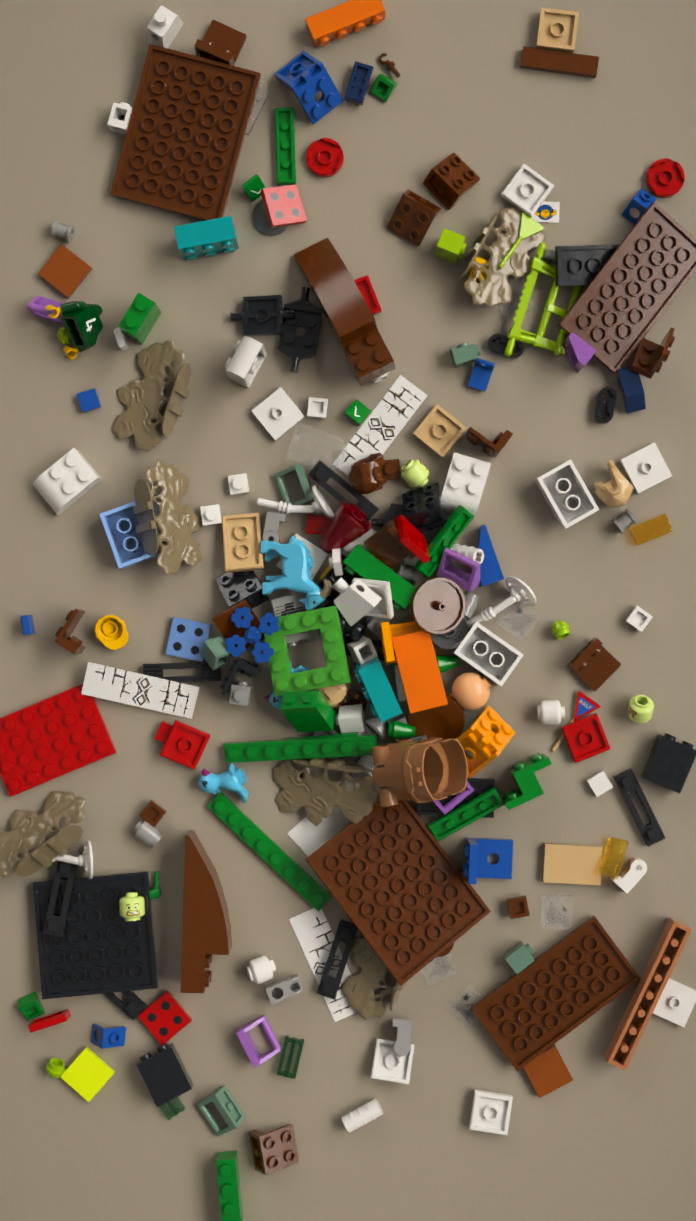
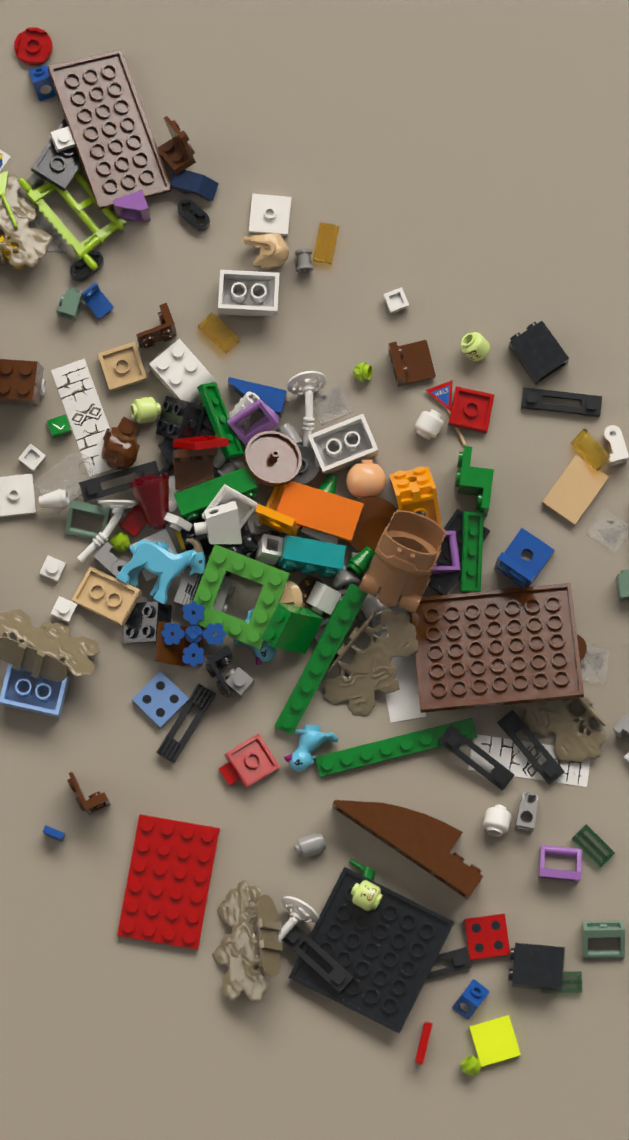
camera: 60 degrees left, 10 degrees down
(30, 1006) = (400, 1054): green slope -> none
(111, 632) = (109, 761): yellow hat -> none
(140, 690) = (178, 769): white sticker -> none
(152, 813) = (295, 829): reddish brown plate -> none
(215, 653) = (188, 679): sand green brick -> none
(293, 523) = (120, 541): none -> lime plate
(294, 451) = (55, 499): none -> white cone
(301, 896) = (453, 740): none -> black container
(518, 490) = (218, 333): none -> clear yellow tile
(518, 907) = (583, 559): reddish brown plate -> none
(599, 255) = (62, 139): none -> white plate
(599, 783) = (519, 423): white tile -> none

